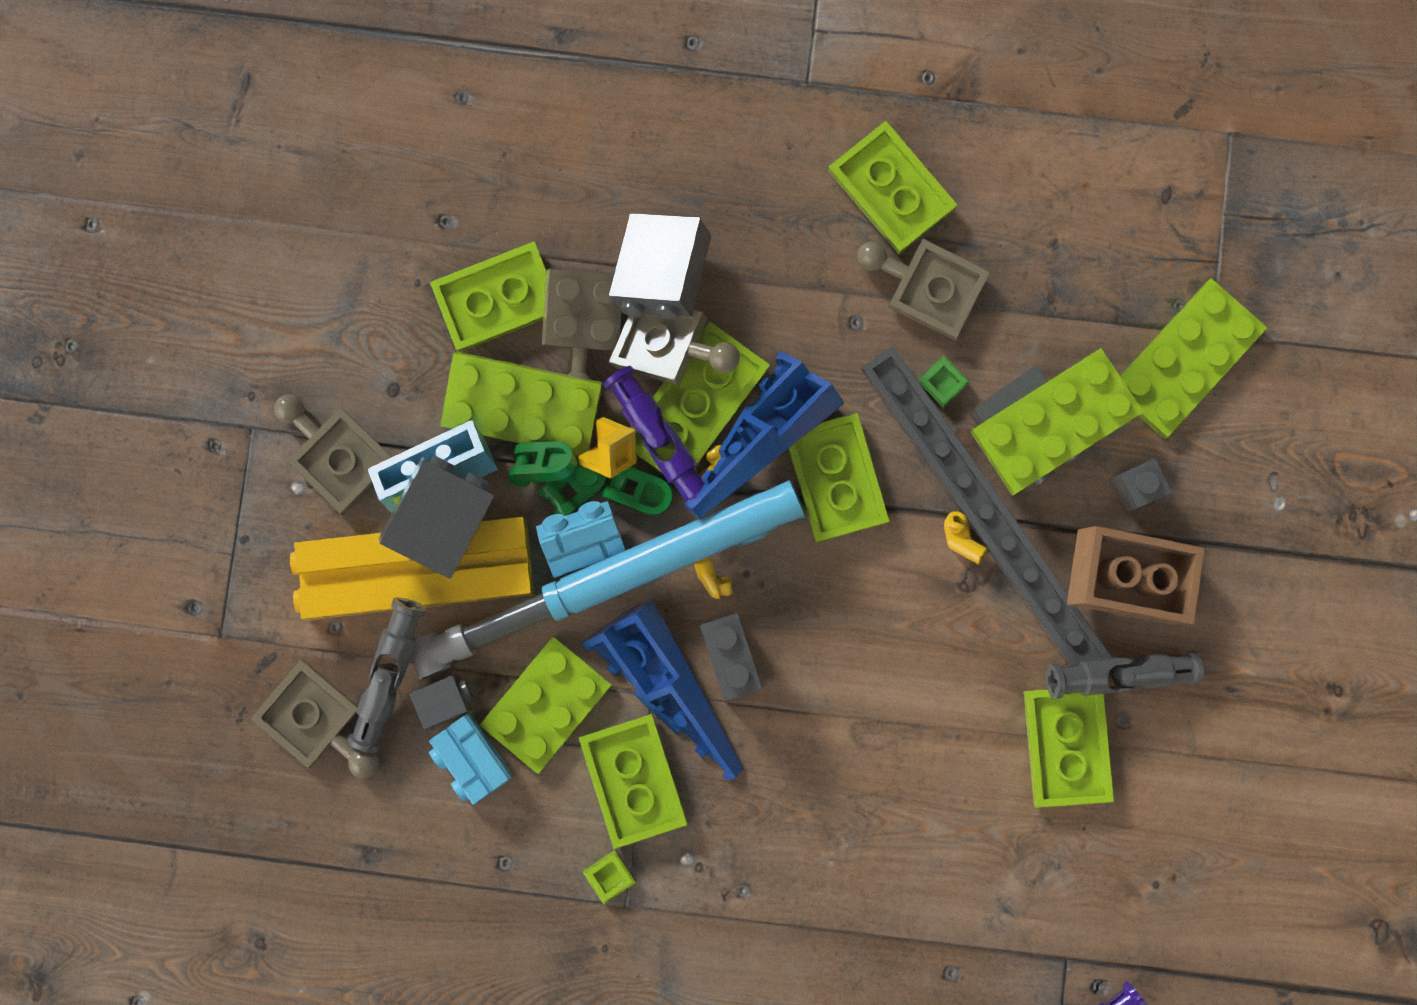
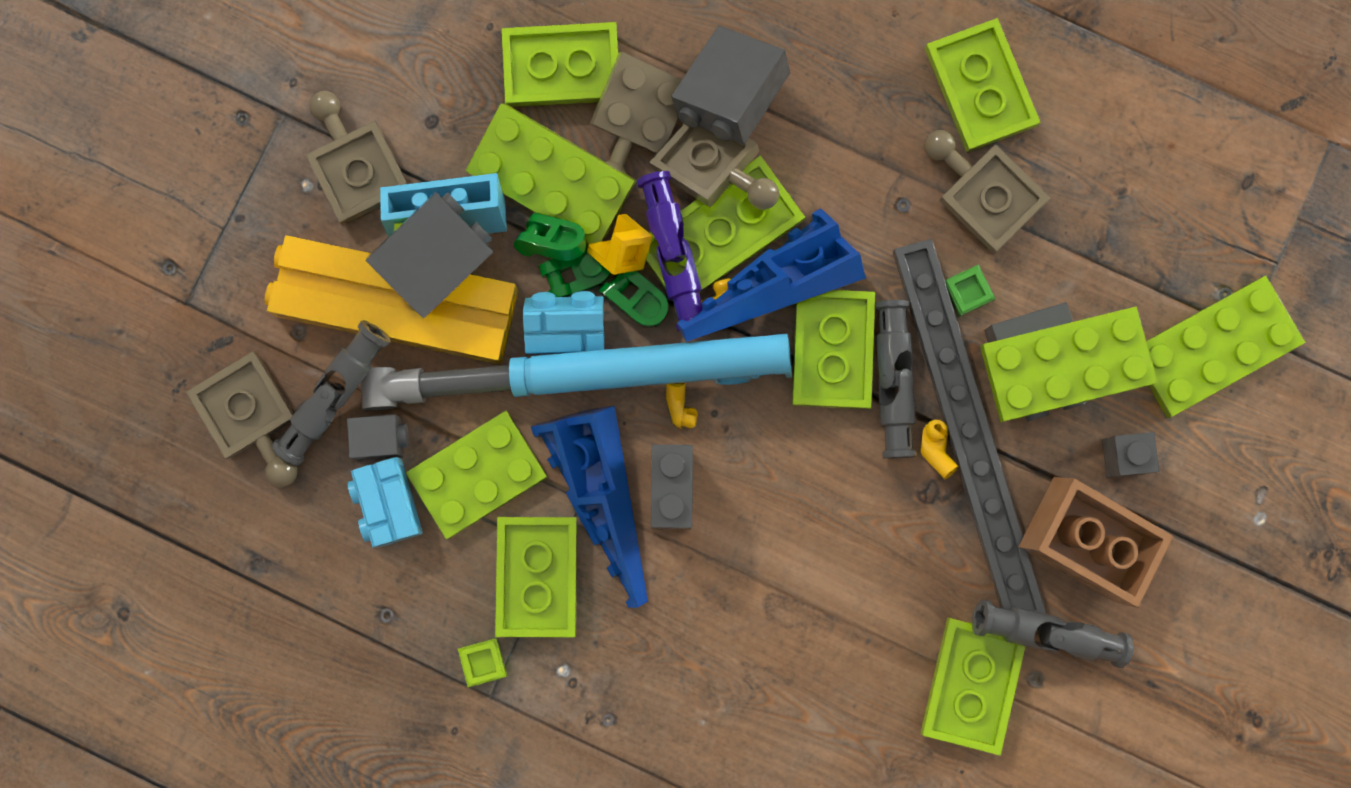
camera: 10 degrees right, 0 degrees up
(894, 460) = (895, 349): none -> dark grey piece

